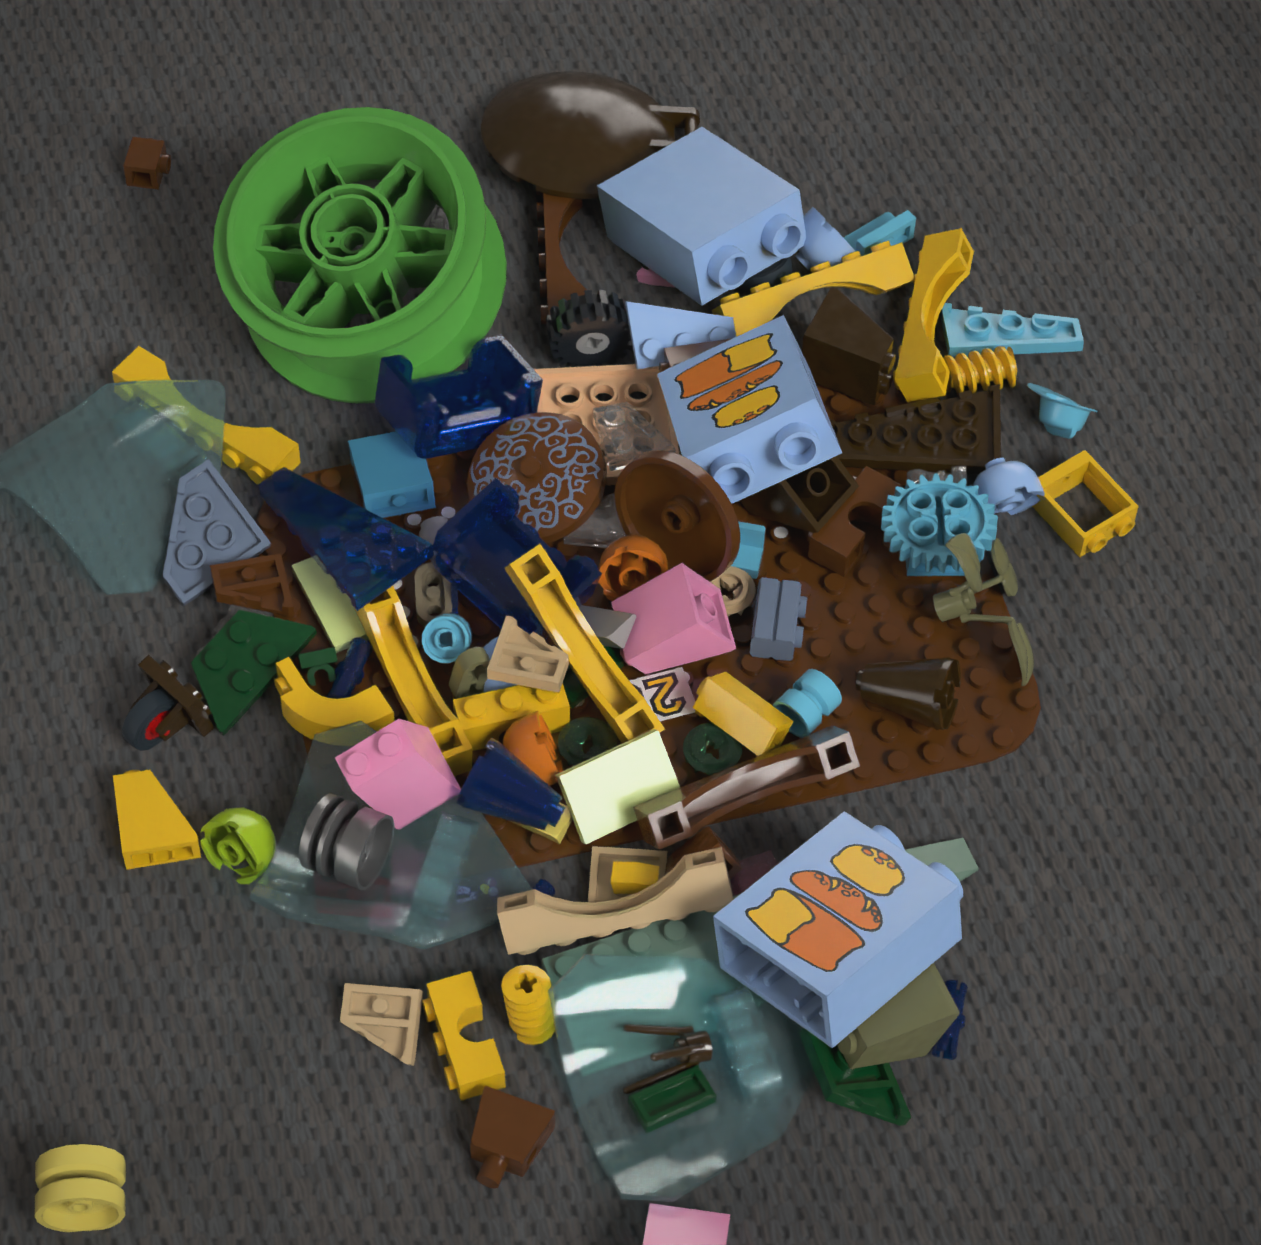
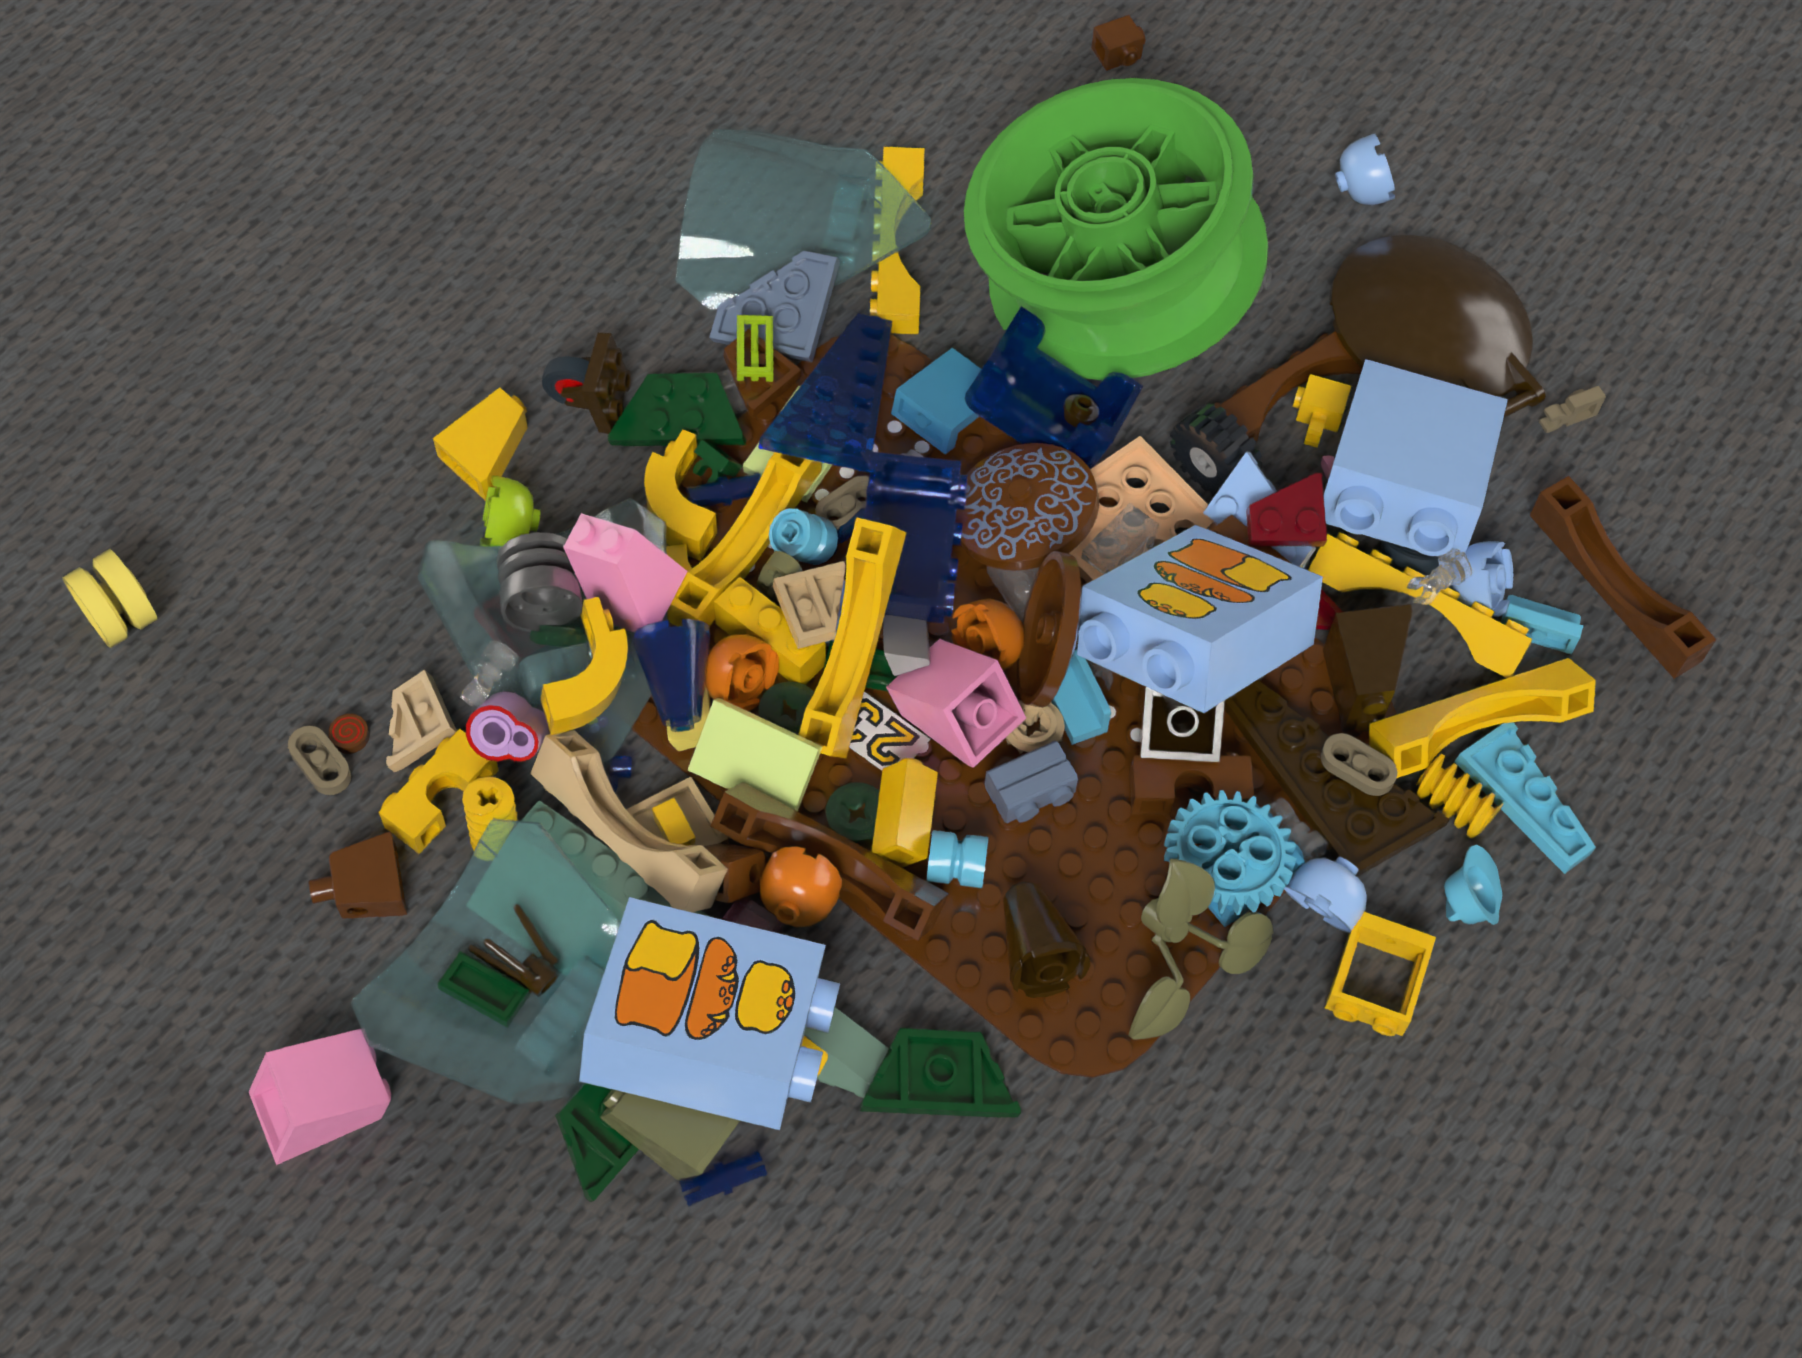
camera: 55 degrees right, 5 degrees up
(232, 574) = (755, 371): none -> lime tile
(352, 1079) = (349, 733): none -> reddish brown tile
(363, 1110) = (321, 761): none -> dark tan plate
(400, 905) = (500, 658): none -> clear piece
(403, 857) = (558, 635): none -> clear green gear
(415, 87) = (1365, 172): none -> light blue cylinder
(462, 942) = (506, 728): none -> lavender piece
(476, 394) = (1080, 409): none -> dark brown plate
(477, 835) = (586, 696): none -> yellow arch
(595, 245) = (1321, 406): none -> yellow brick
(701, 310) = (1289, 516): none -> dark red wing
(721, 98) = (1577, 407): none -> dark tan plate
(753, 820) = (799, 887): none -> orange cylinder
(814, 251) = (1452, 569): none -> clear piece
(920, 407) = (1359, 763): none -> dark tan plate
(947, 168) = (1665, 629): none -> reddish brown arch
(969, 824) = (939, 1076): none -> dark green wing

